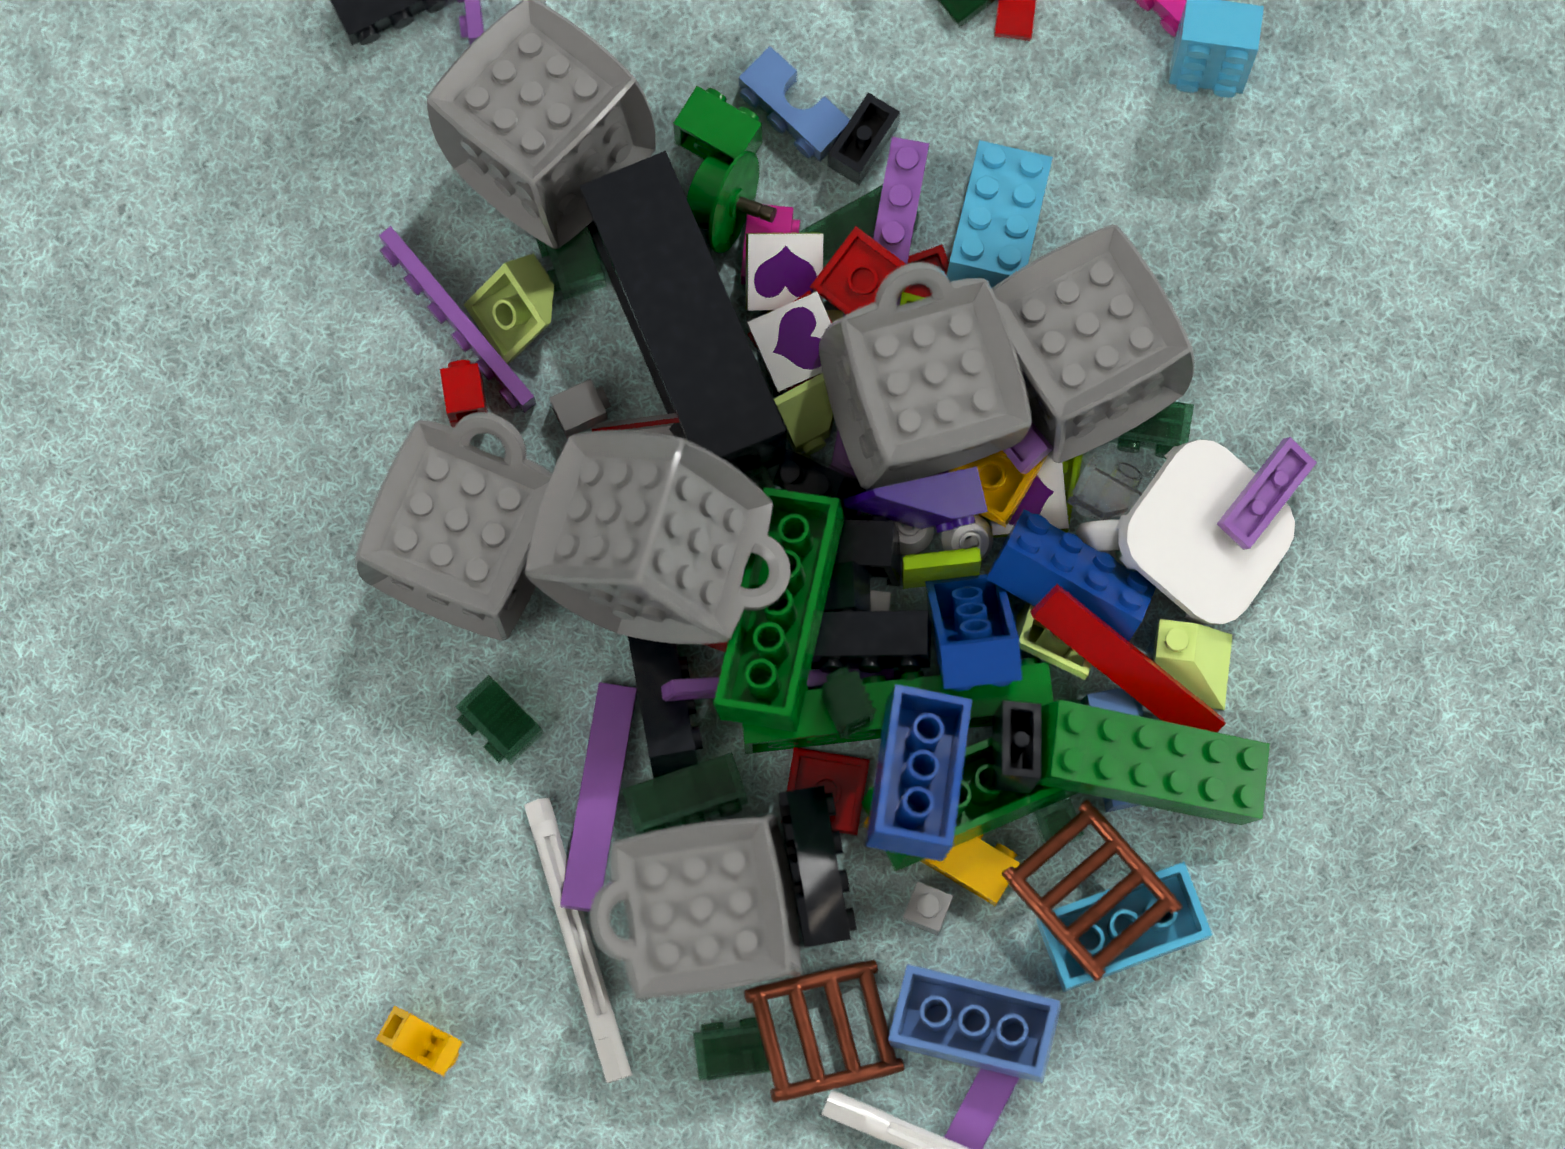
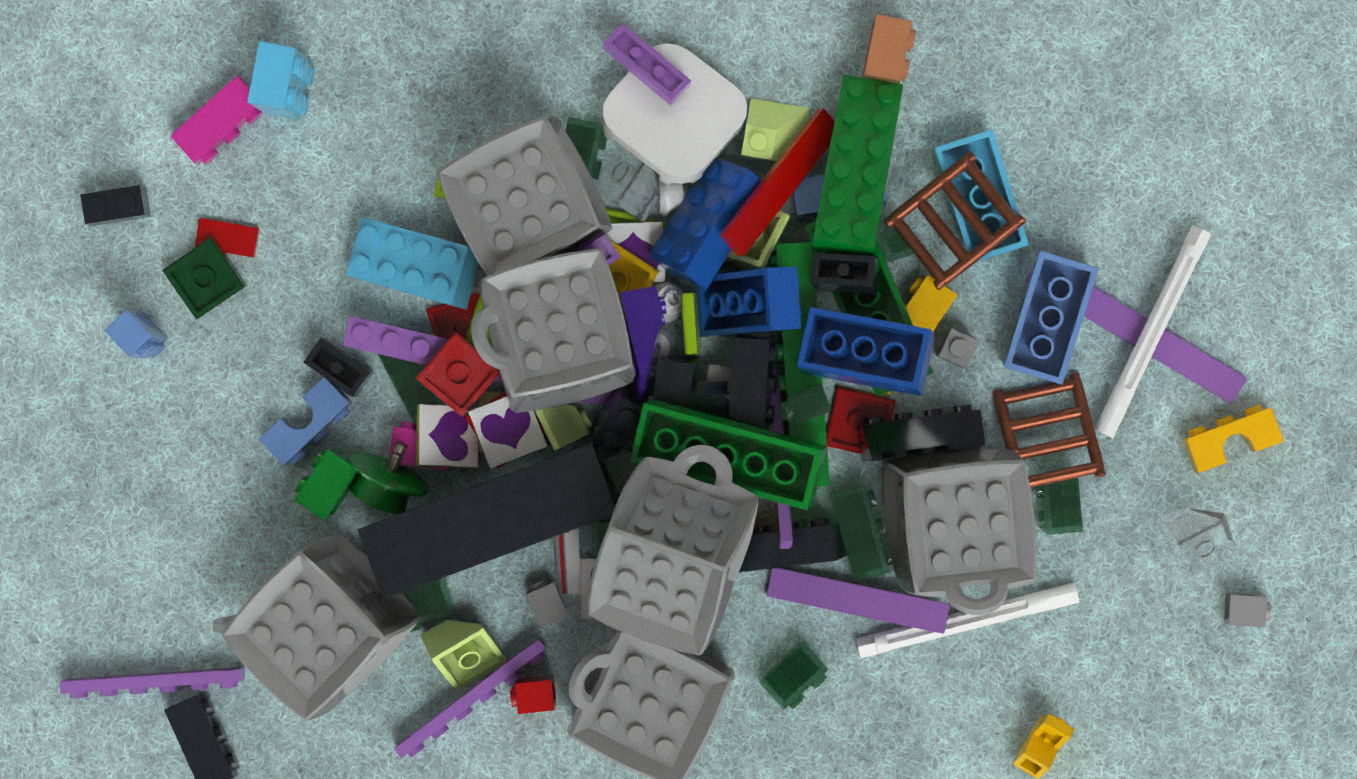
camera: 85 degrees left, 10 degrees up
(1305, 799) = (887, 49): none -> nougat brick

